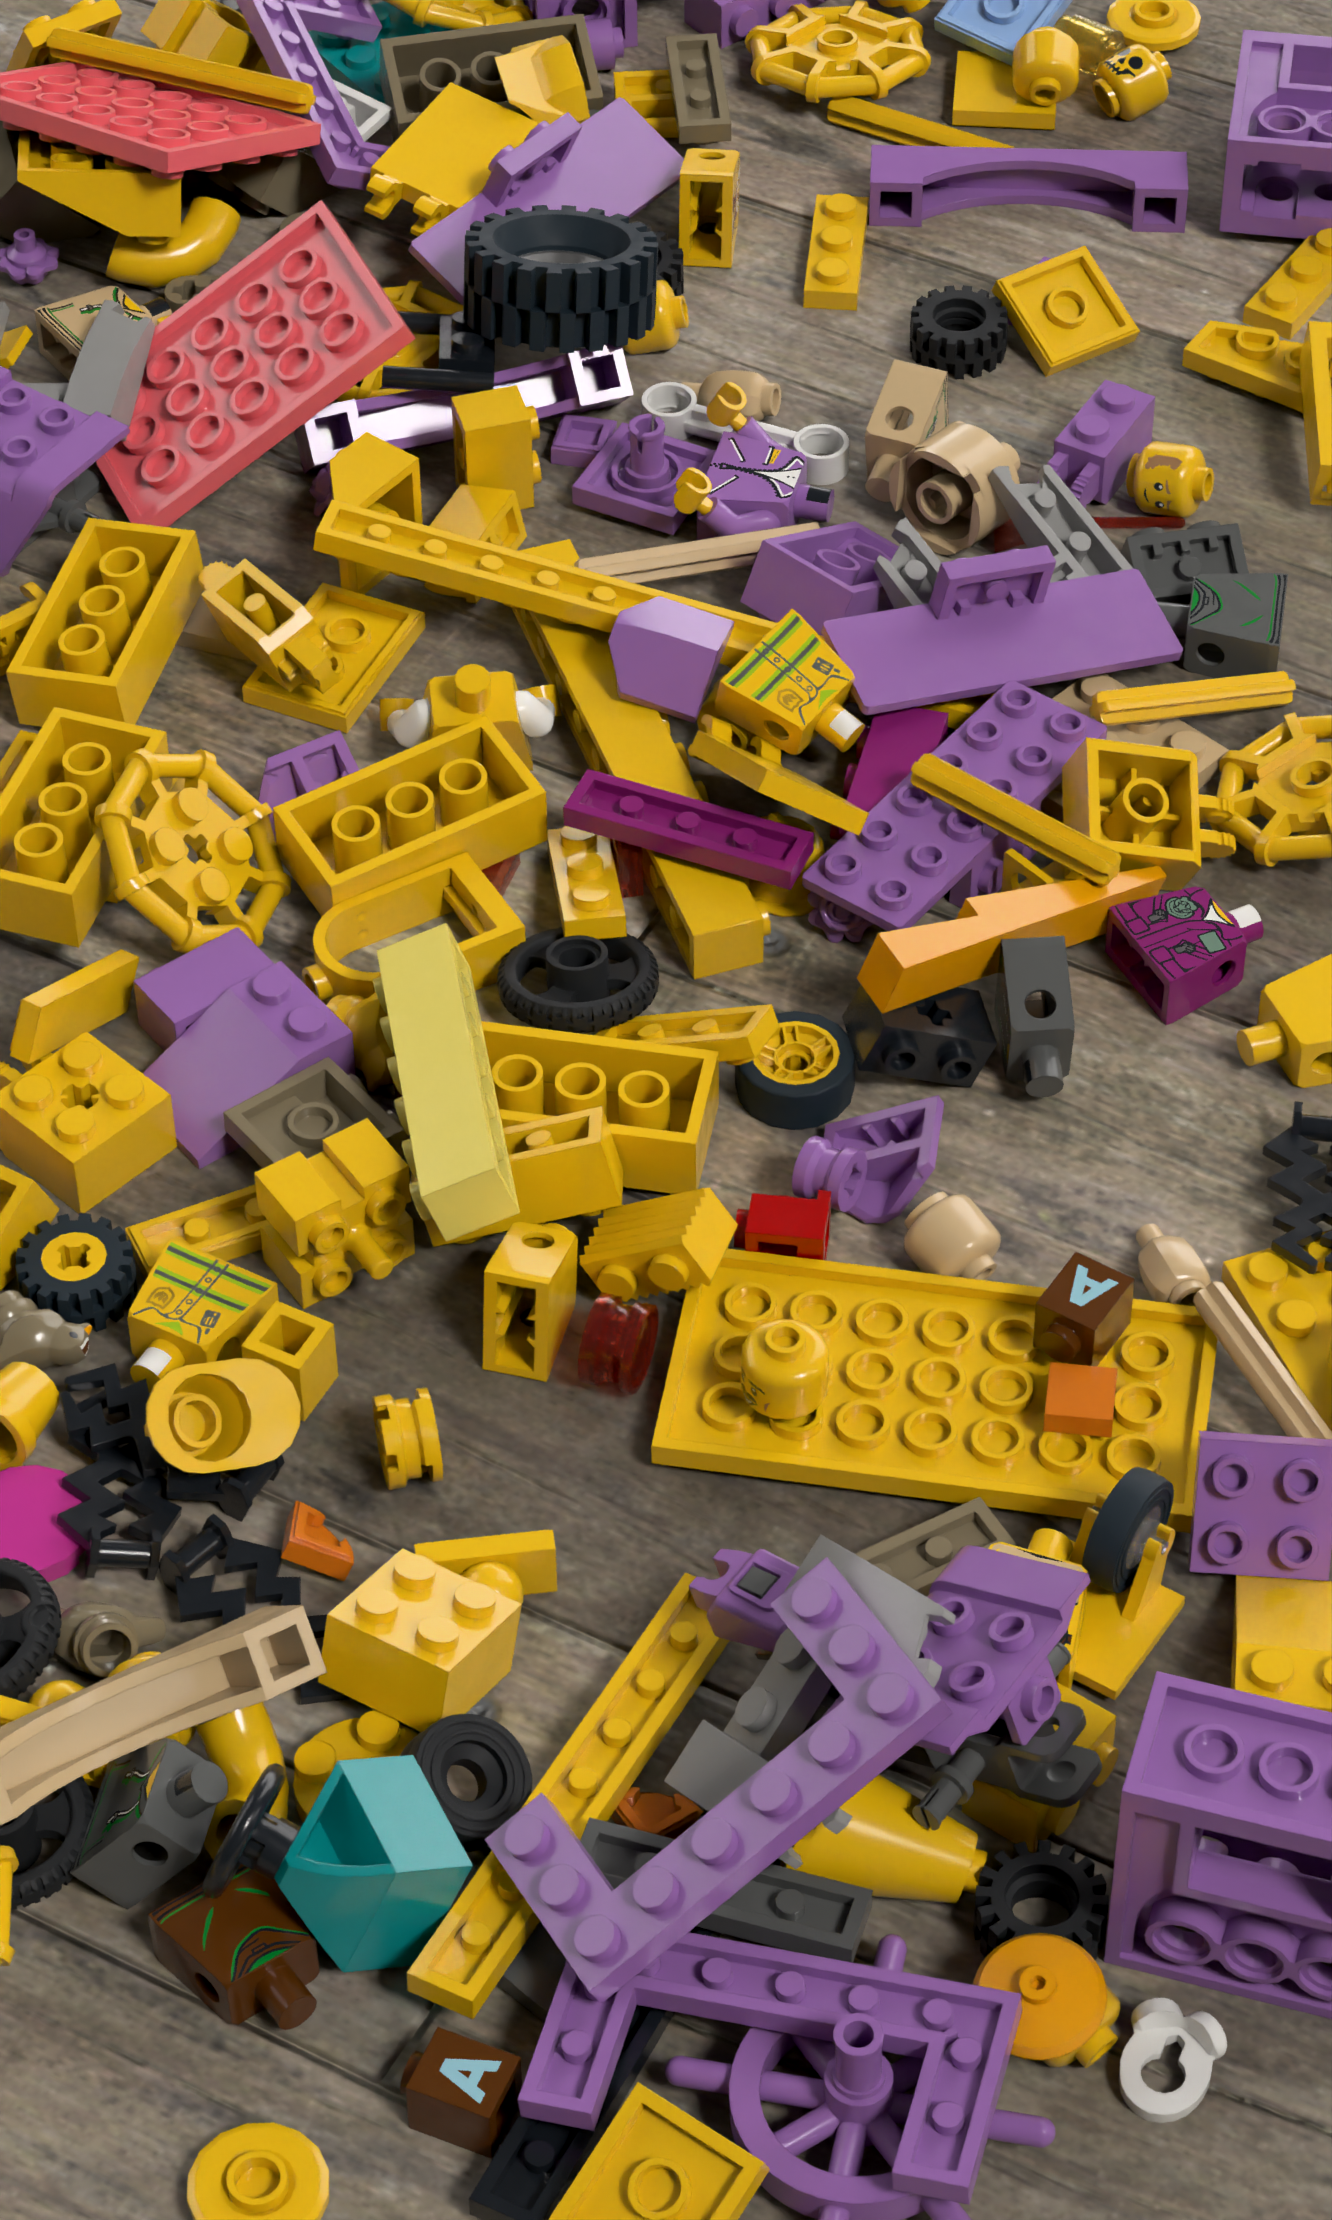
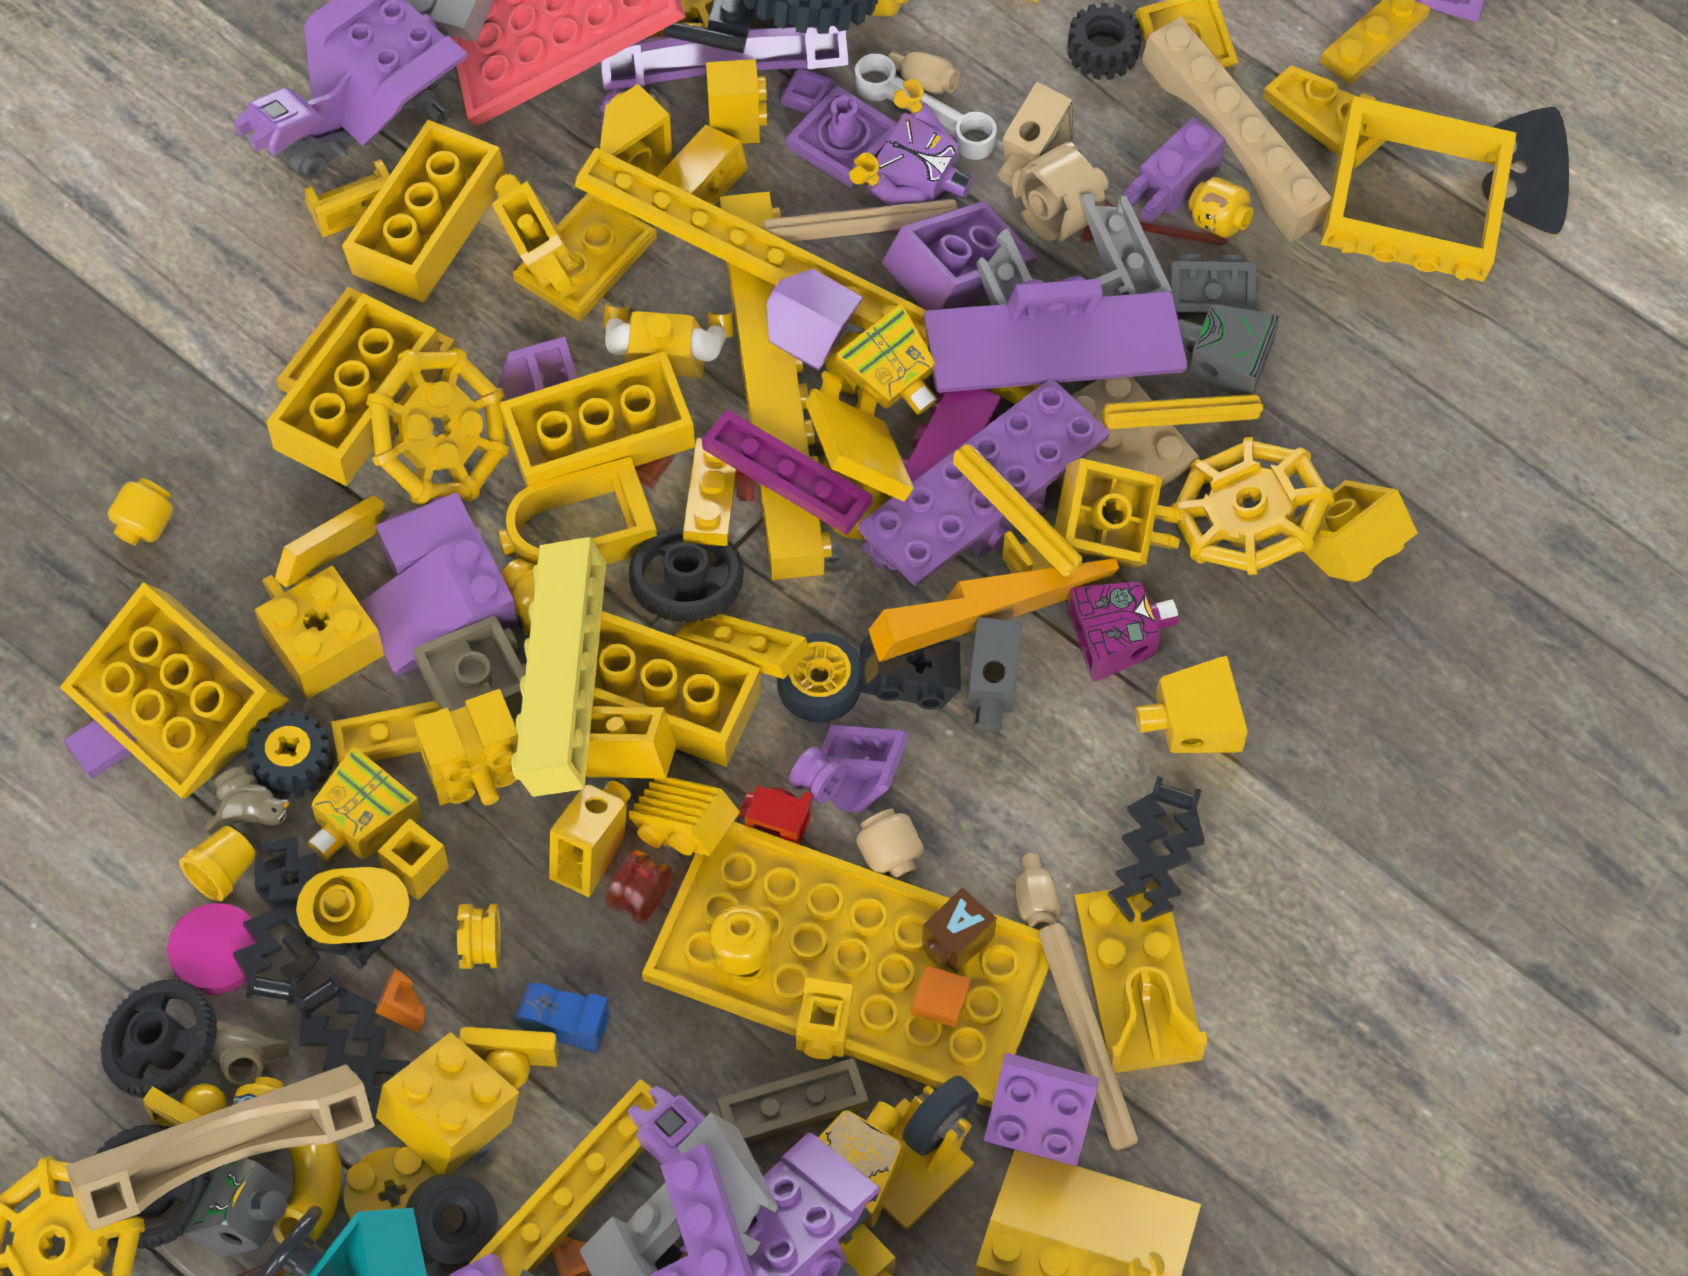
camera: 10 degrees right, 15 degrees up
(577, 1514) = (570, 1016): none -> blue leg
(928, 1468) = (822, 1040): none -> yellow window
(1245, 439) = (1280, 178): none -> tan arch

